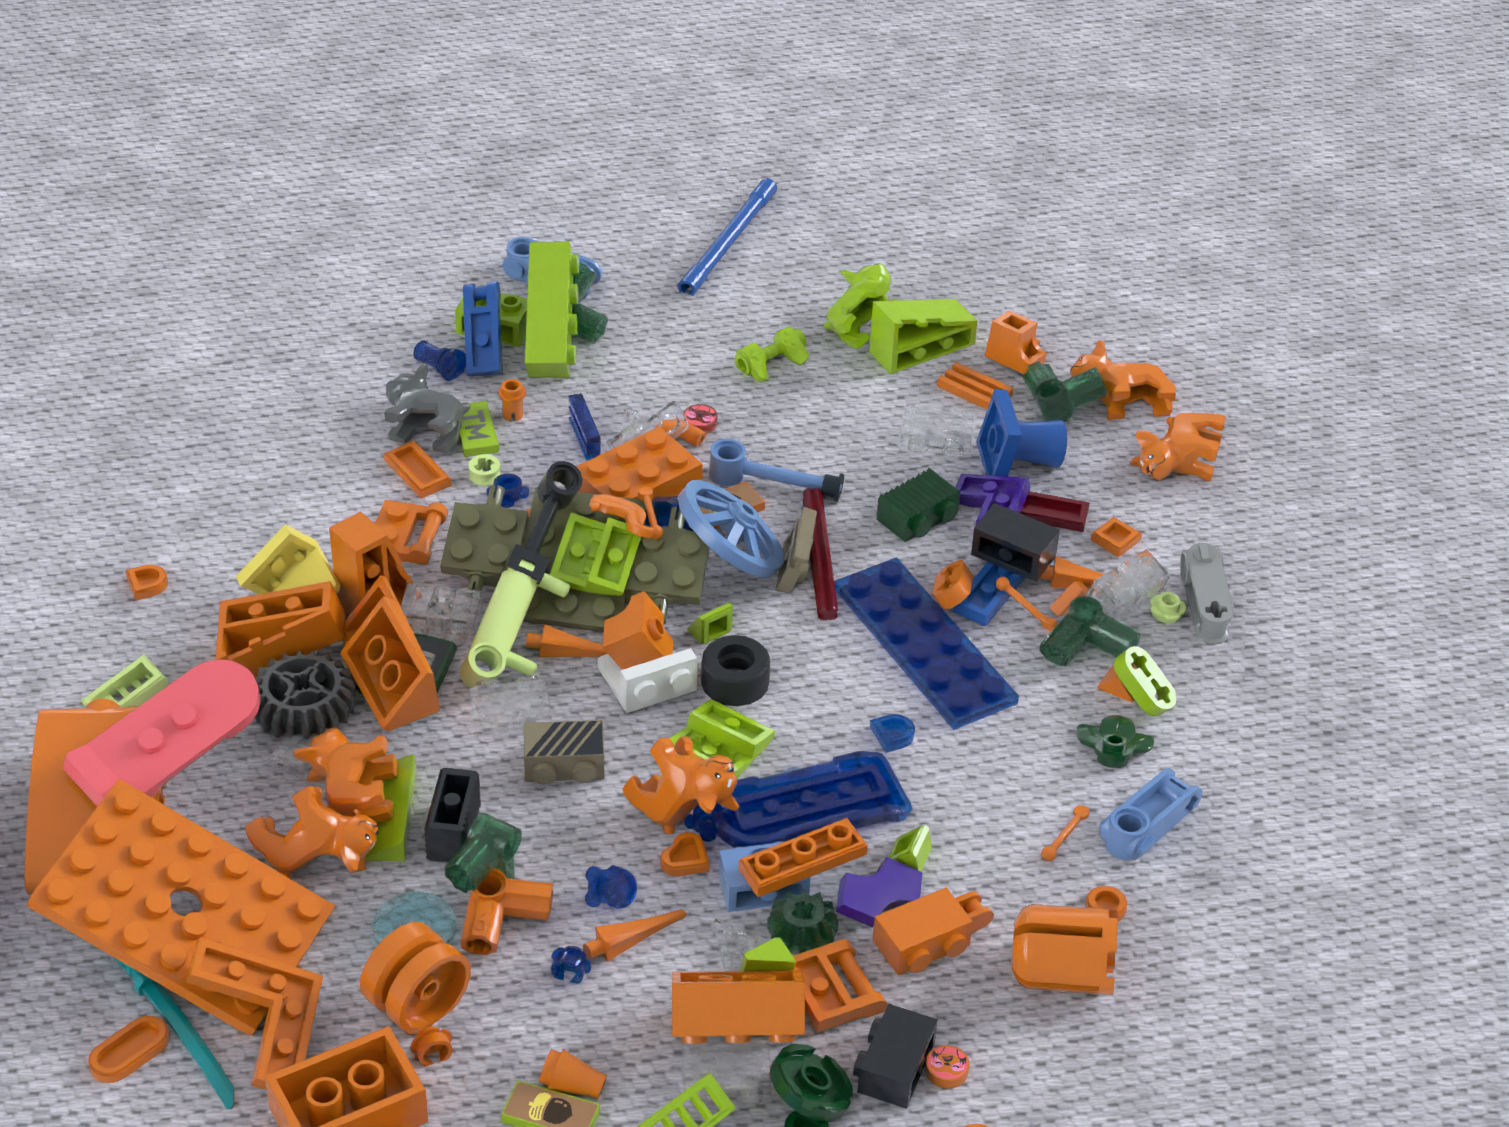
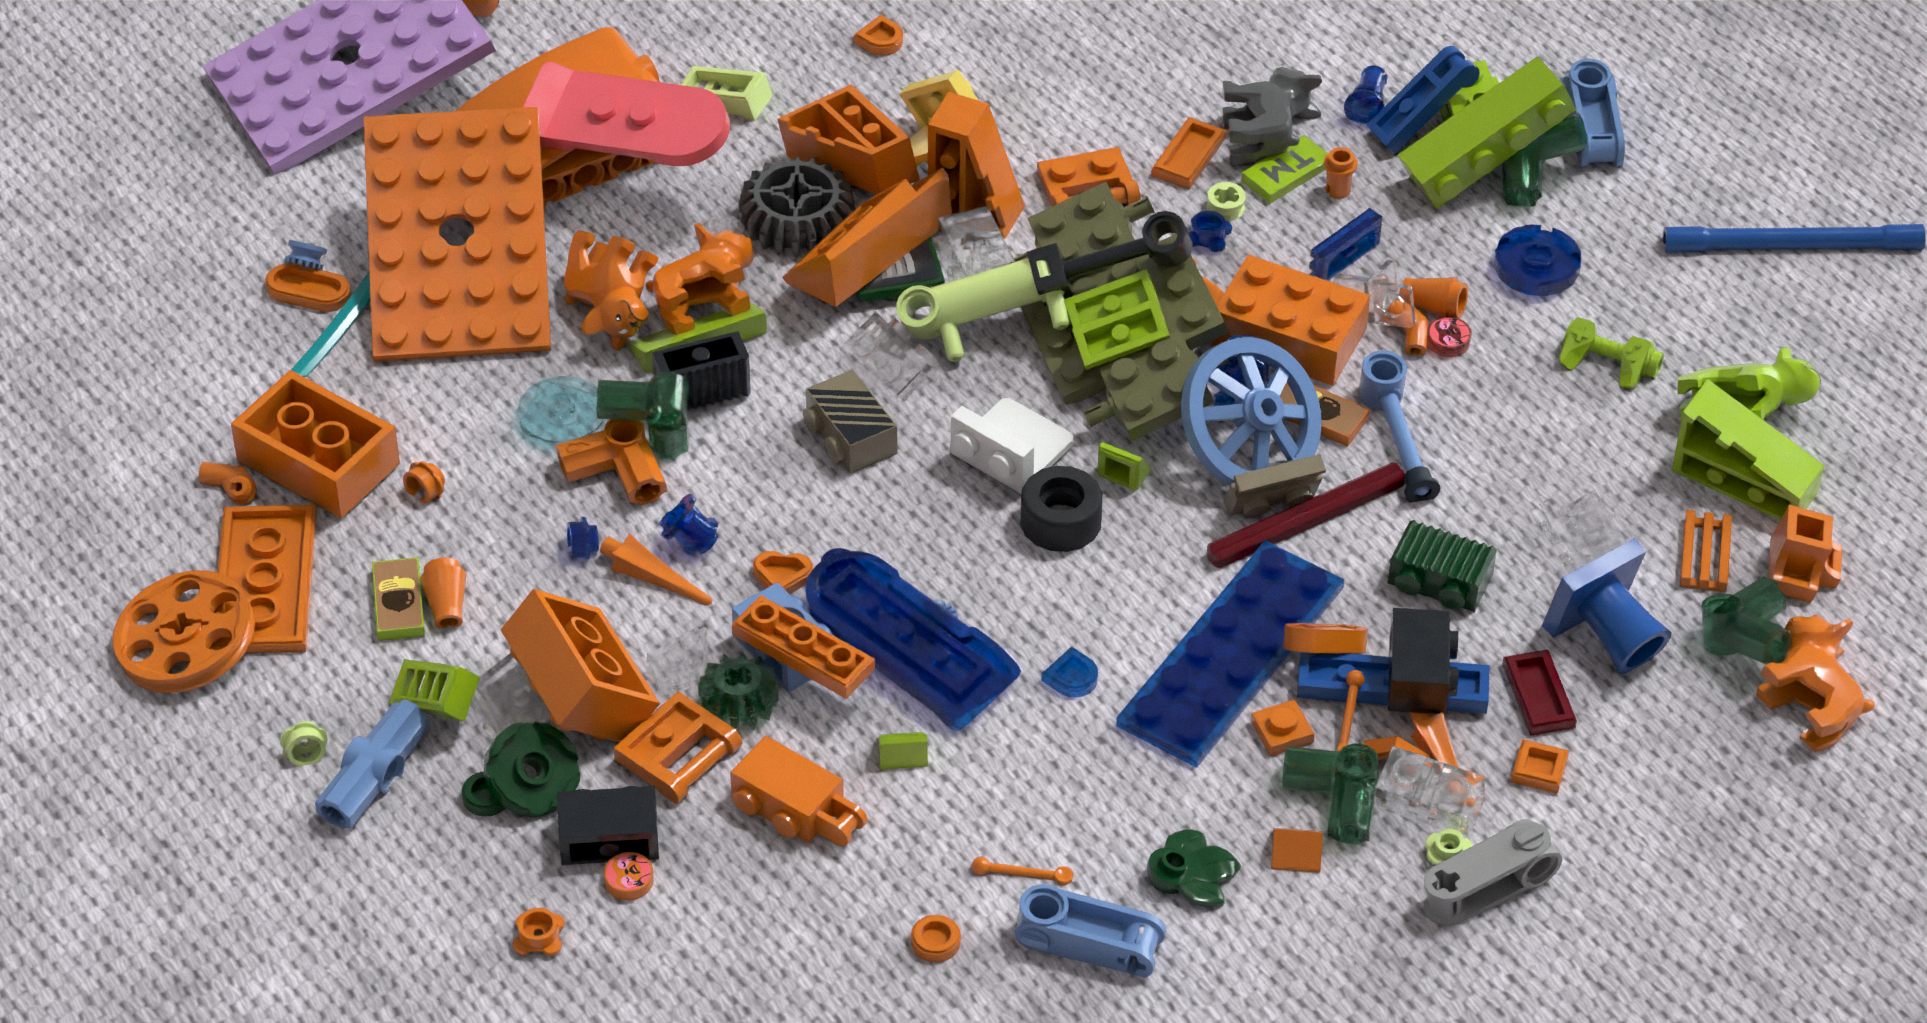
camera: 65 degrees right, 5 degrees up
(97, 1030) = (305, 253): none -> medium blue bush
(282, 988) = (412, 347): orange plate -> none
(415, 977) = (473, 425): orange wheel -> none
(562, 644) = (1007, 360): orange piece -> none
(628, 510) = (1183, 310): orange piece -> none
(637, 633) = (1036, 405): orange brick -> none
(646, 494) = (1225, 317): orange hinge -> none
(661, 399) = (1439, 295): none -> orange cone
(662, 349) = (1537, 260): none -> clear blue plate
(682, 784) = (844, 516): orange animal -> none
(725, 733) = (958, 538): lime slope -> none
(768, 956) = (658, 672): lime slope -> none
(888, 888) = (833, 744): dark purple tile -> none
(986, 490) = (1514, 633): dark purple tile -> none
(1010, 644) = (1282, 727): none -> orange plate
(1065, 948) = (847, 914): orange cylinder -> none
(1145, 681) = (1300, 861): lime beam -> none
(1181, 446) = (1739, 770): orange animal -> none

